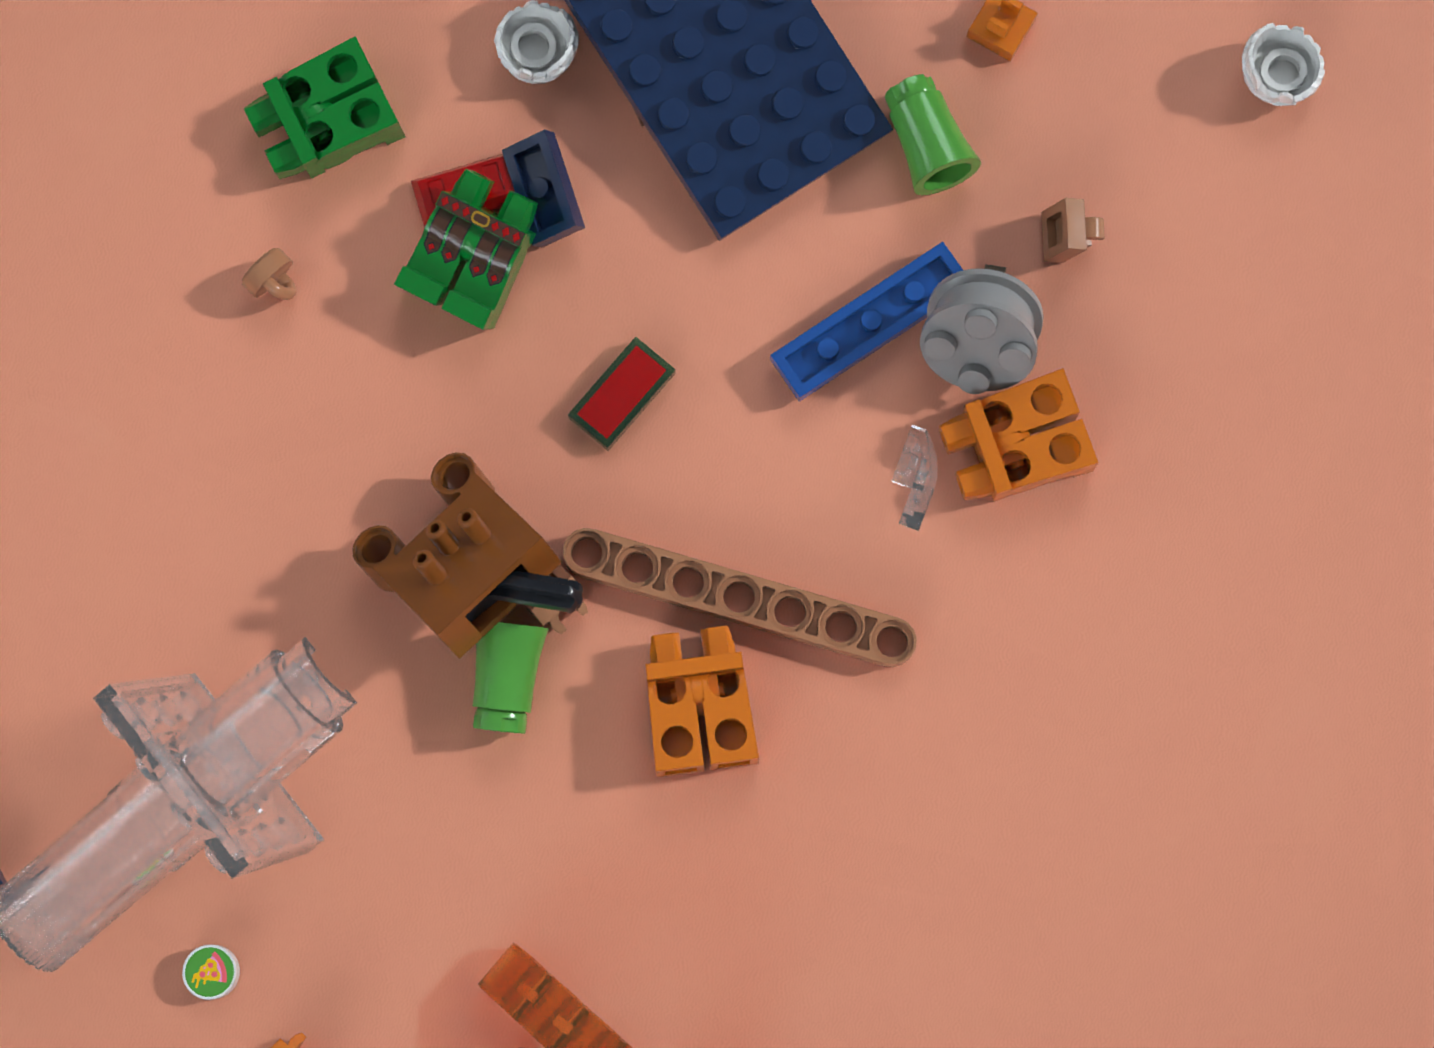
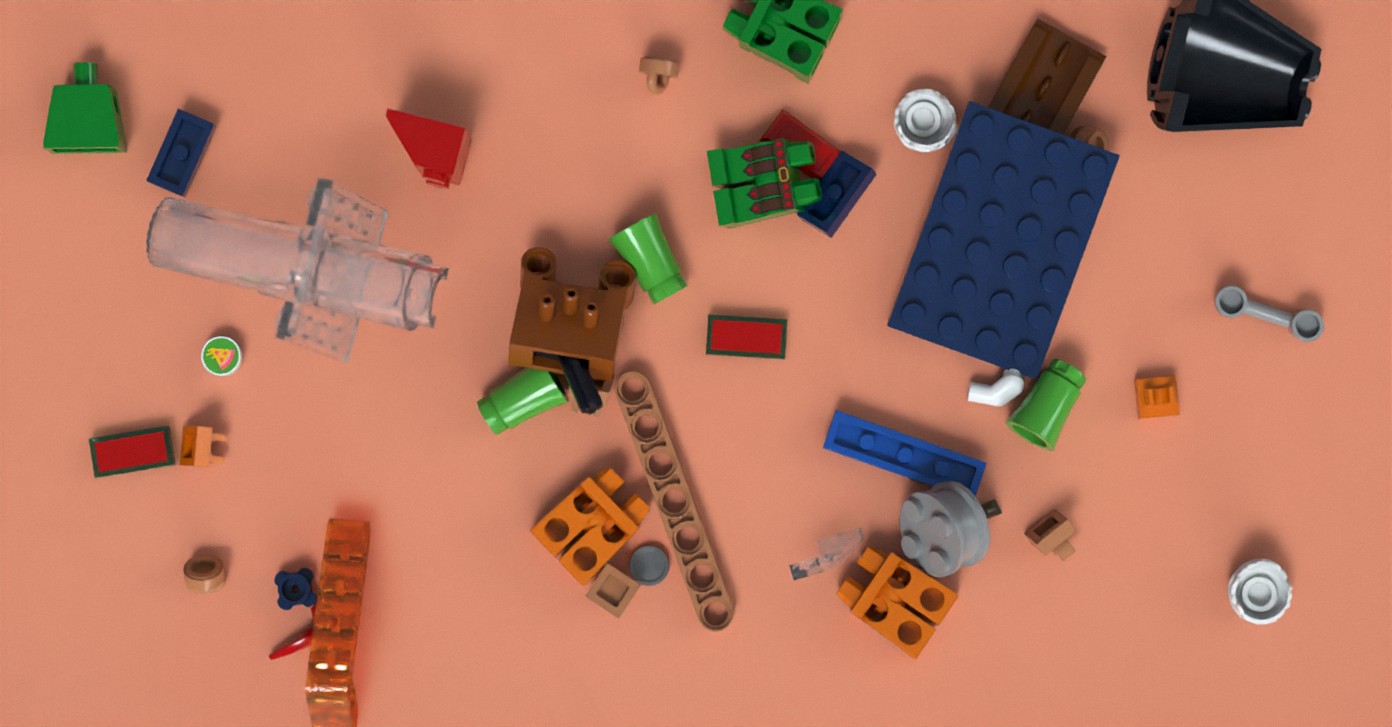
camera: 55 degrees right, 5 degrees up
(159, 569) = (433, 146): none -> red slope
(453, 425) = (651, 258): none -> bright green plant
(787, 676) = (649, 565): none -> flat silver piece
(787, 730) = (613, 590): none -> nougat tile
(878, 174) = (1000, 392): none -> white arm

